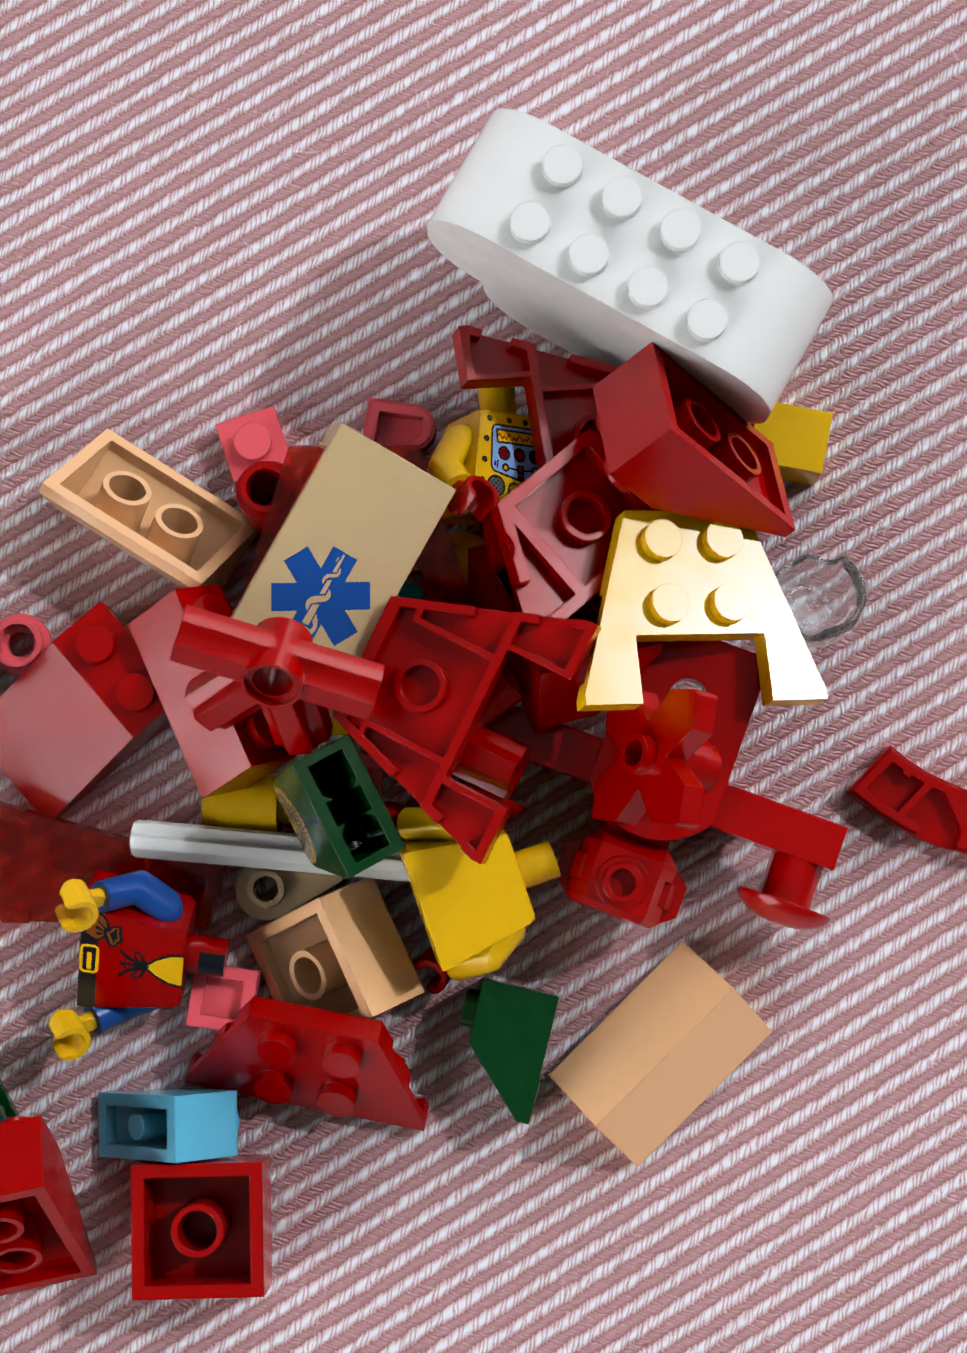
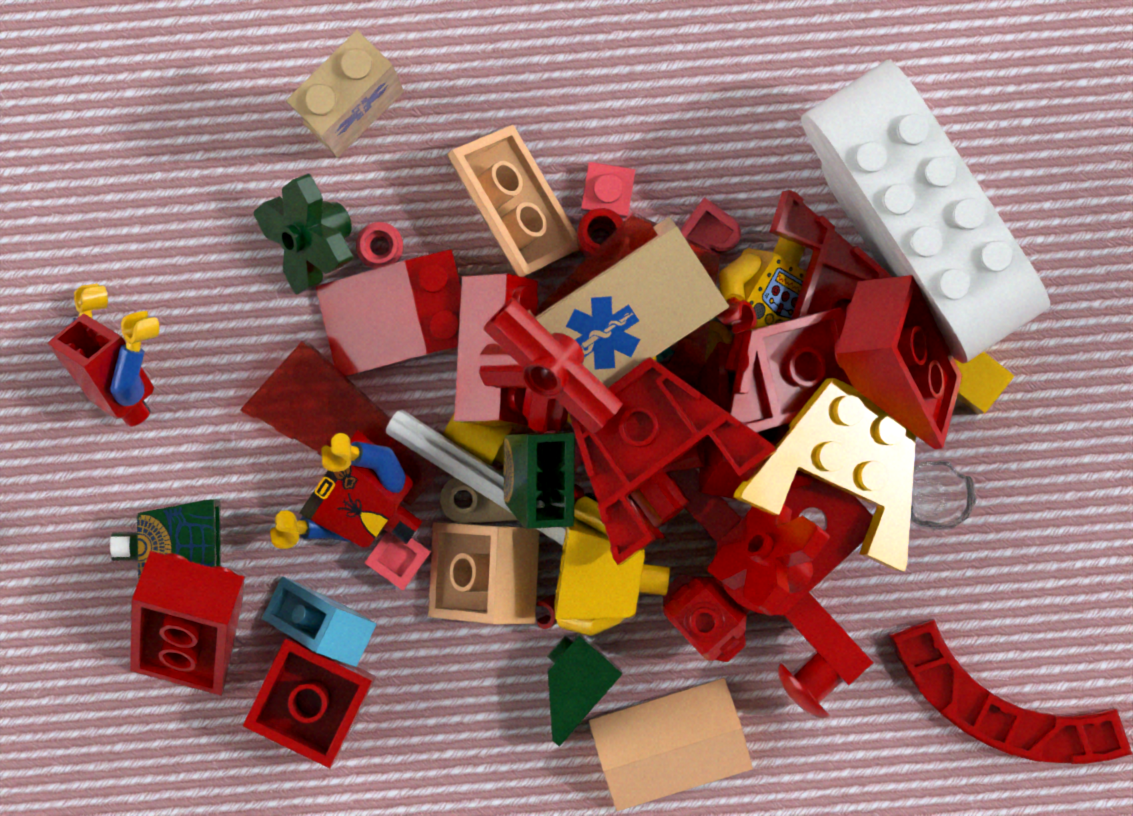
camera: 25 degrees right, 5 degrees up
(311, 1062) = (435, 630): red wing -> none

